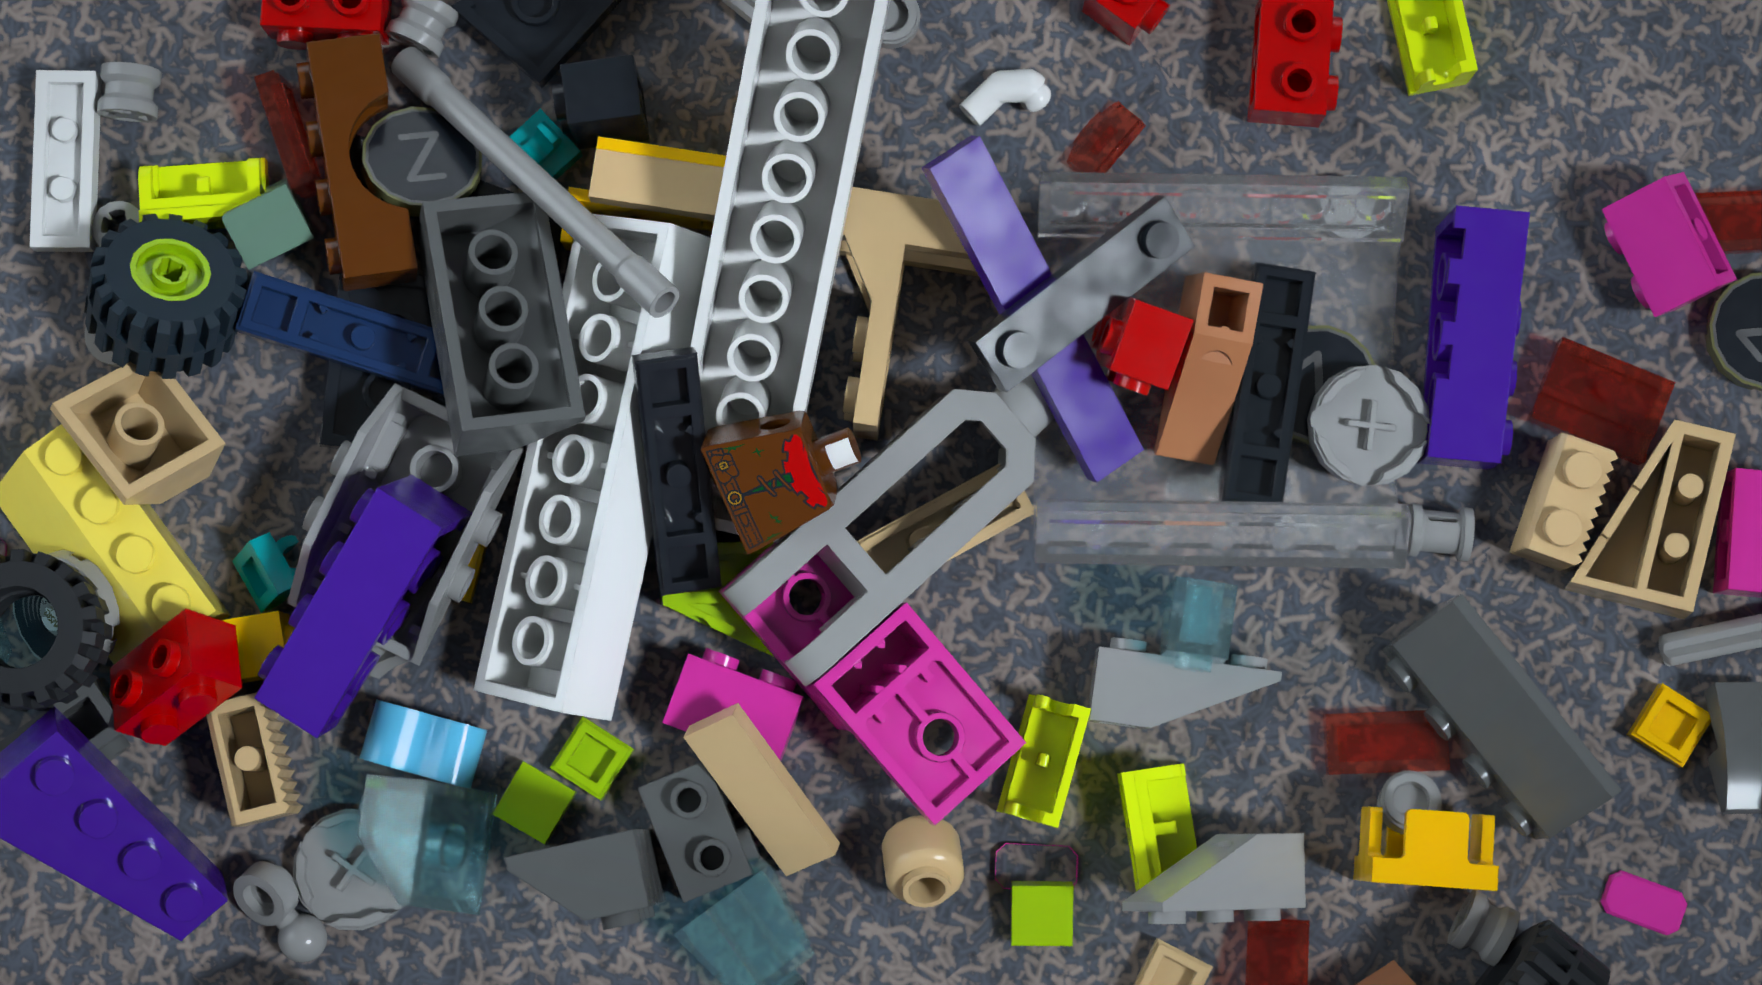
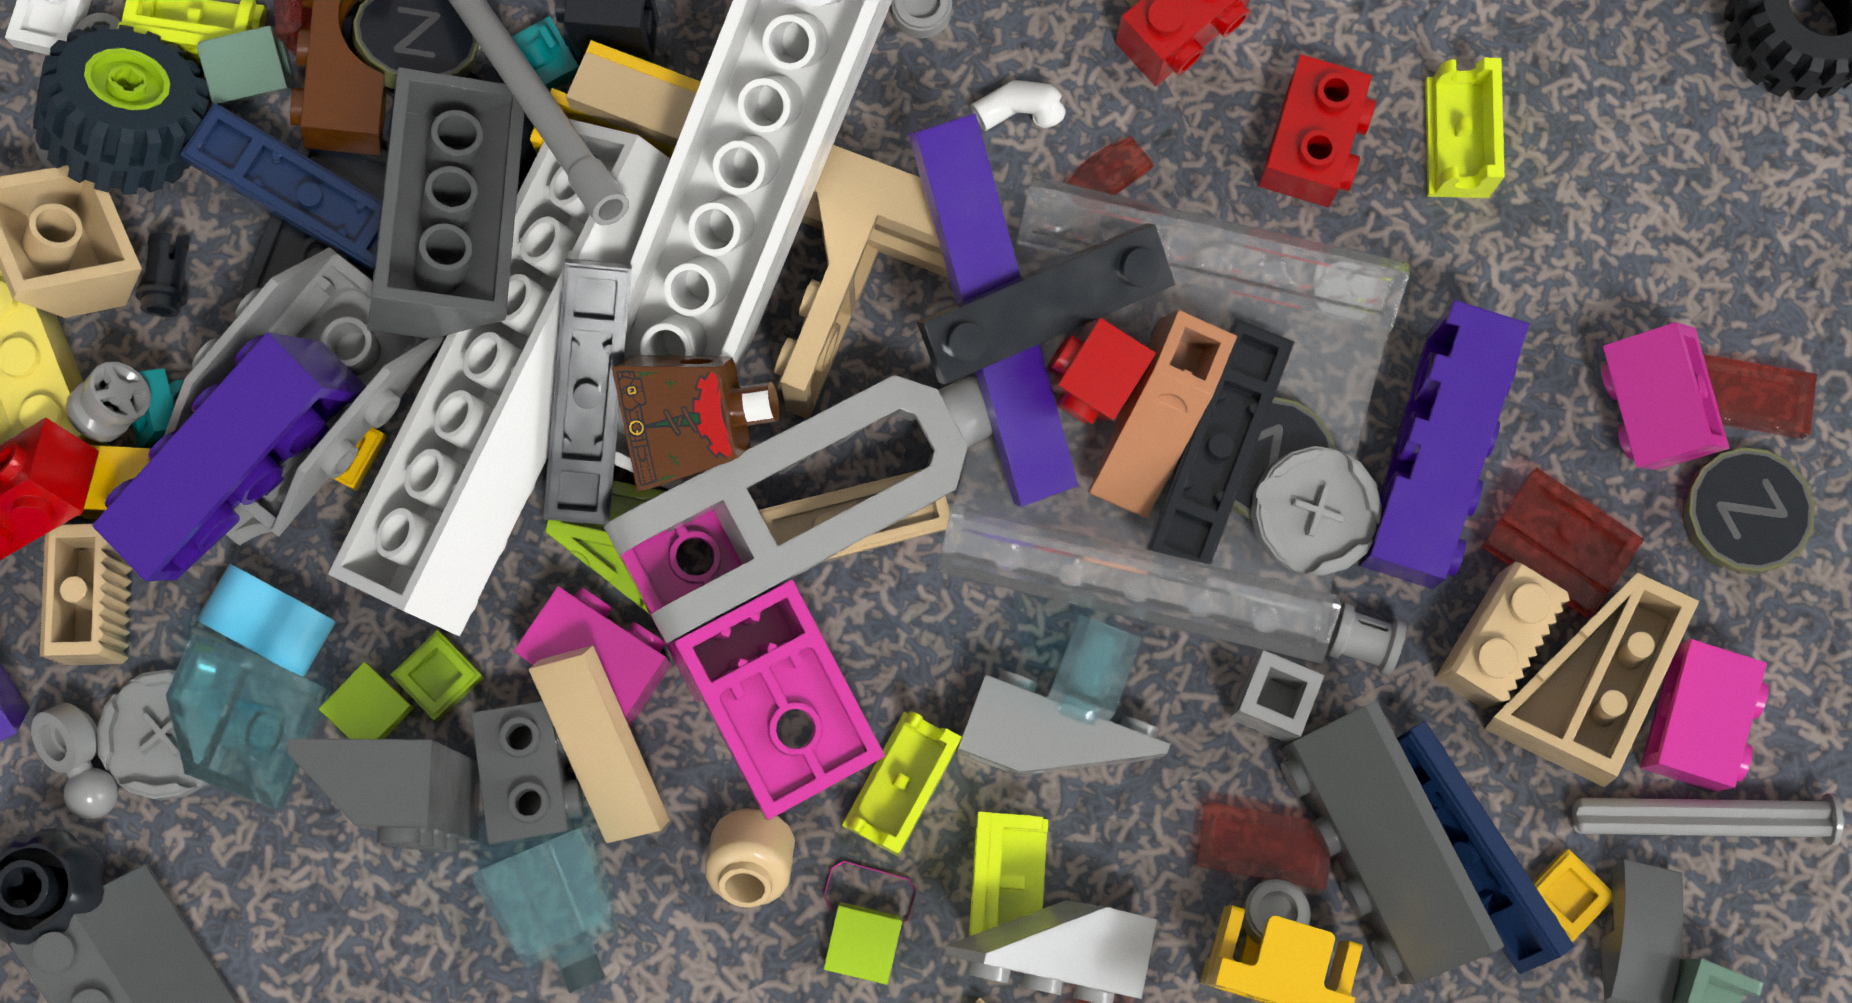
camera: 10 degrees right, 5 degrees down
(229, 561) = (108, 385): none -> light grey wheel
(242, 447) = (164, 276): none -> black pin
(1368, 606) = (1276, 697): none -> light grey brick
(1607, 731) = (1507, 893): none -> dark blue plate

